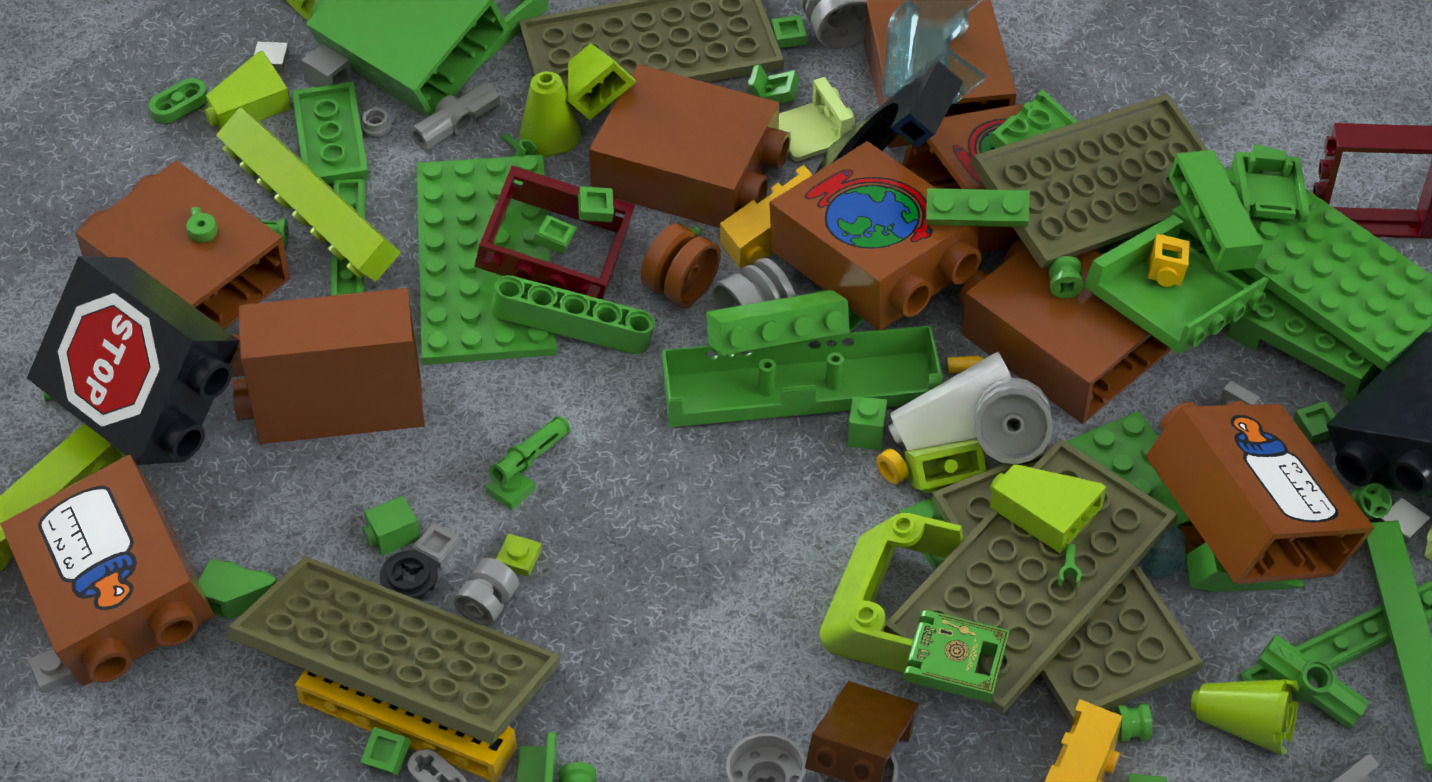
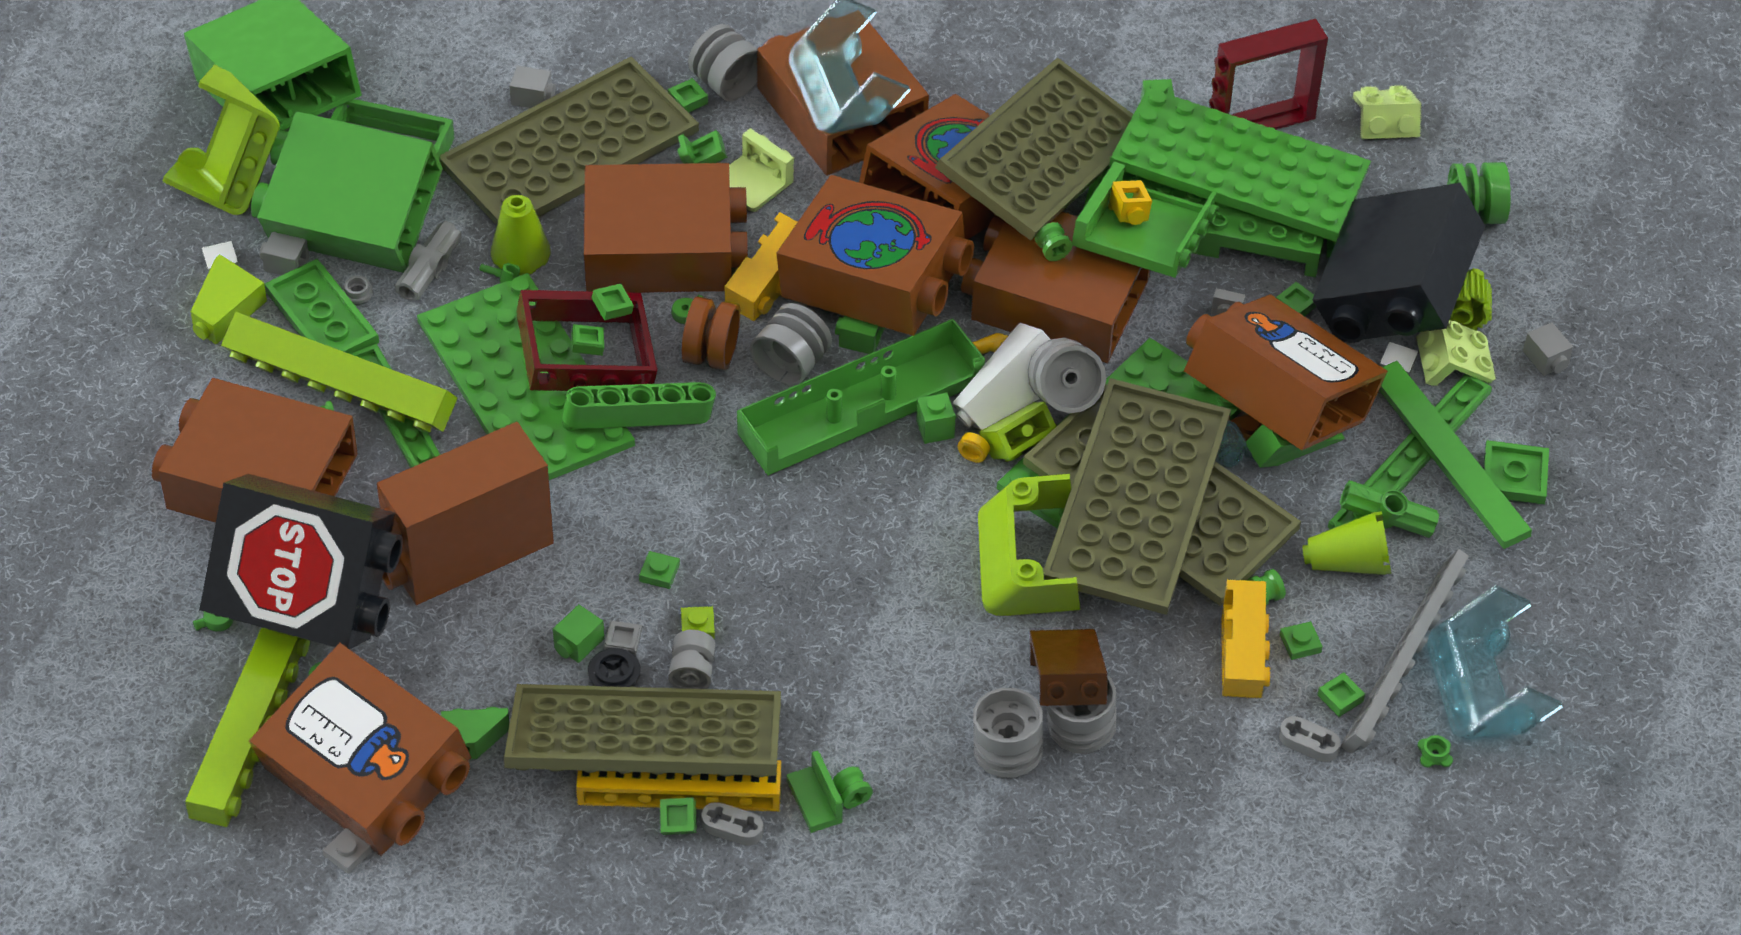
camera: 25 degrees left, 0 degrees up
(175, 101) = (157, 326): bright green plate -> none
(201, 226) = (275, 429): bright green piece -> none
(520, 457) = (660, 539): bright green pin -> none
(595, 81) = (554, 189): lime slope -> none
(777, 322) = (827, 355): bright green brick -> none
(911, 113) = (875, 128): black arch -> none
(948, 653) = (1109, 580): bright green container -> none
(977, 207) = (961, 204): bright green plate -> none
(1034, 119) = (962, 116): bright green wing -> none
(1046, 503) = (1127, 433): lime slope -> none
(1069, 567) = (1170, 480): bright green hand -> none
(1215, 210) = (1150, 147): bright green brick -> none
(1271, 195) = (1181, 121): bright green container -> none
(1377, 497) = (1372, 348): bright green wheel -> none

